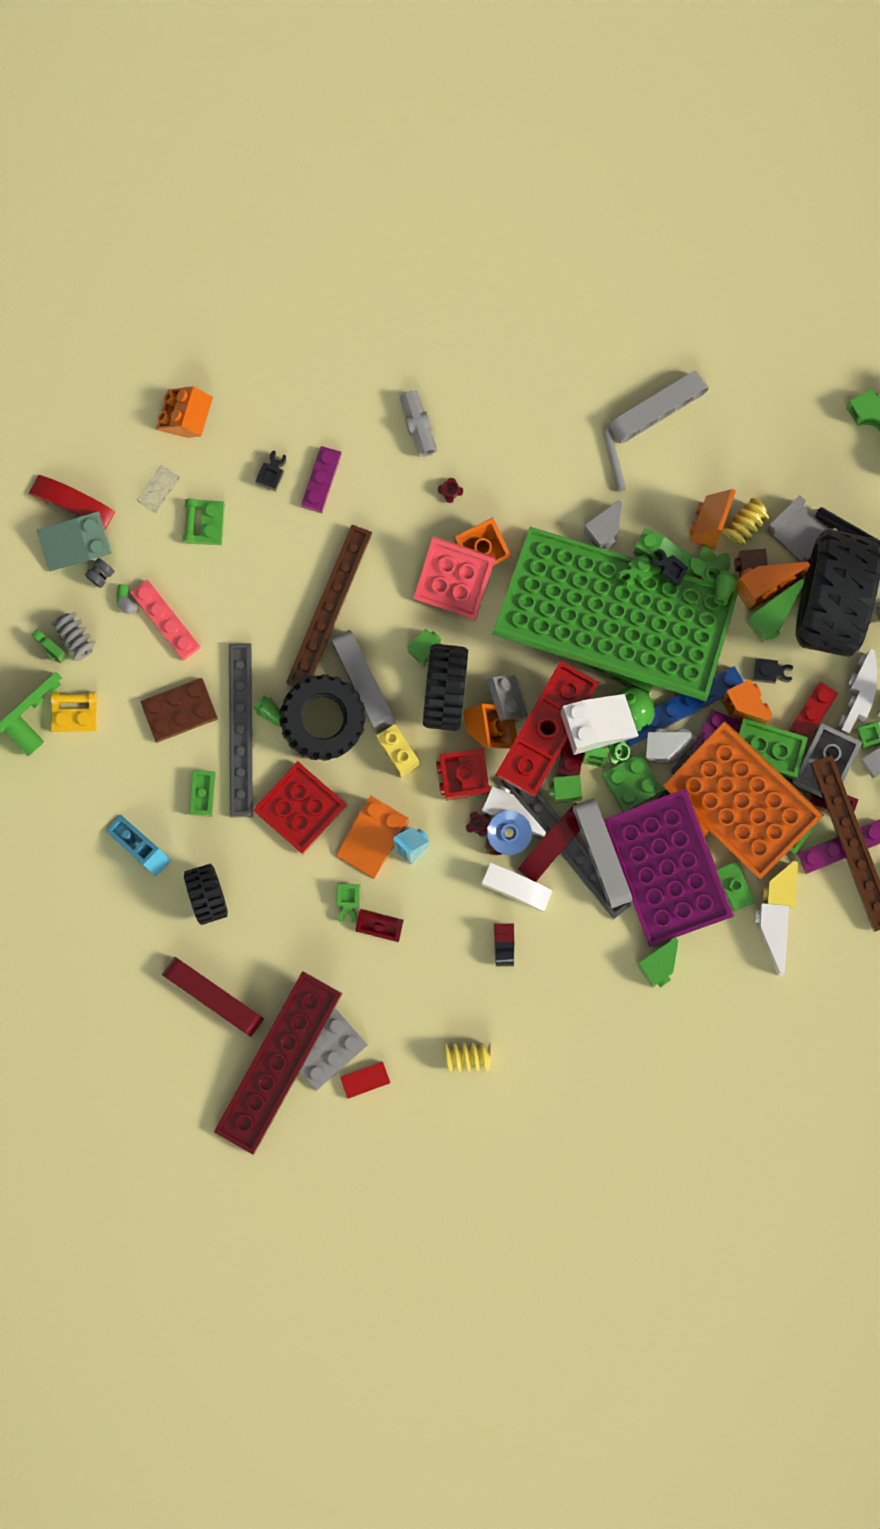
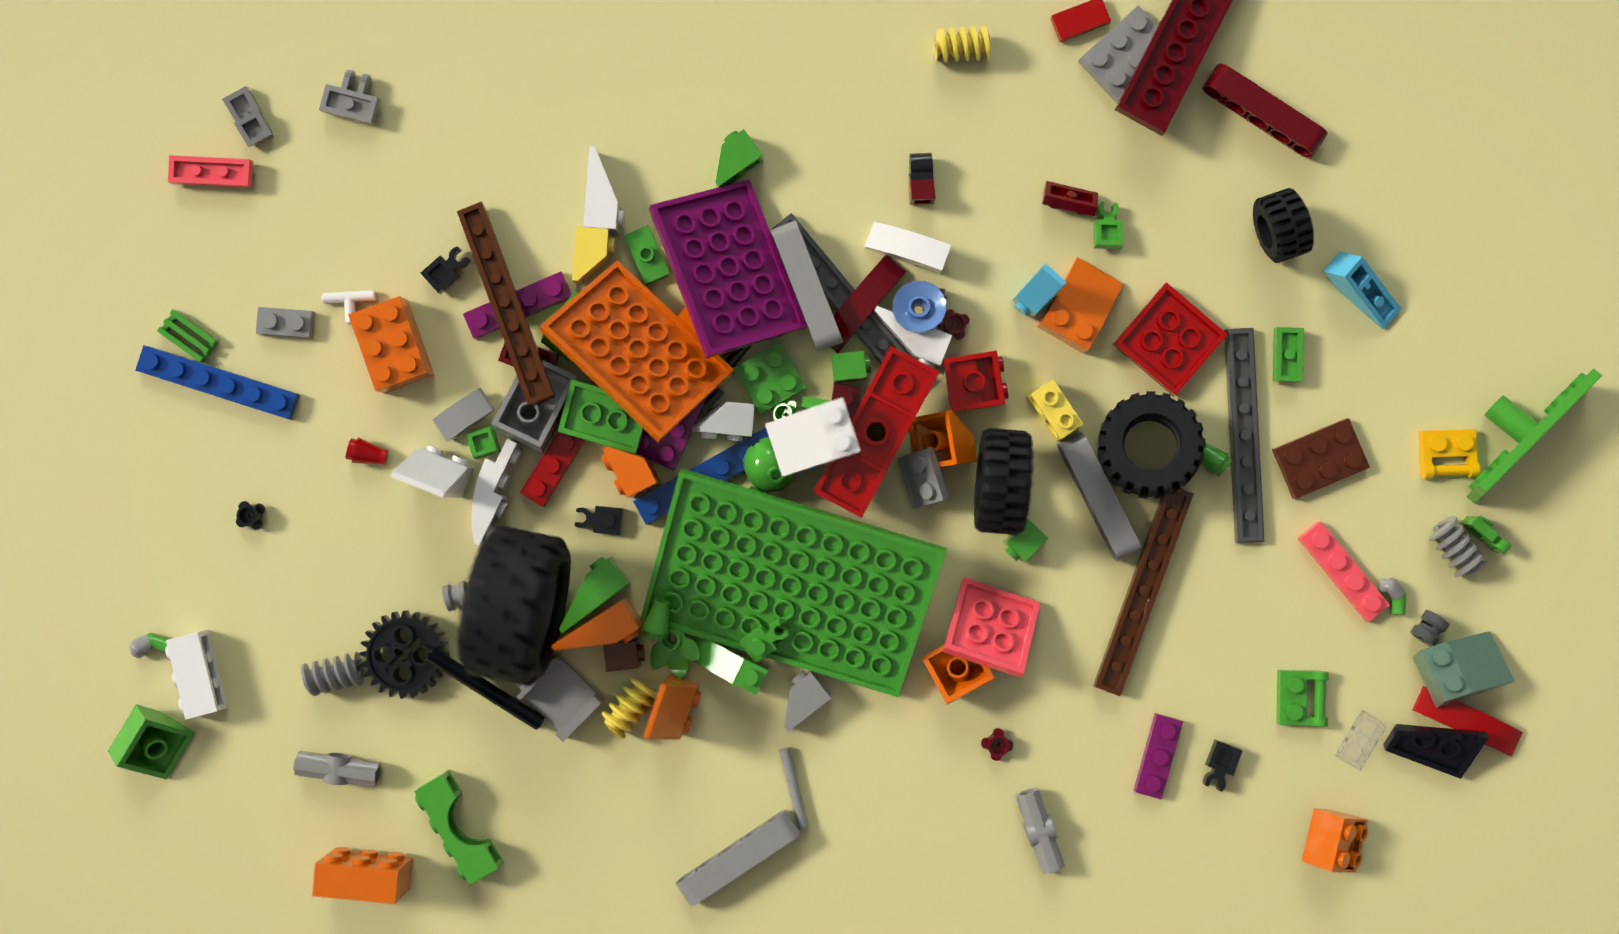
camera: 175 degrees right, 10 degrees up
(101, 481) = (1437, 748): none -> black wing
(671, 568) = (723, 643): black plate -> none

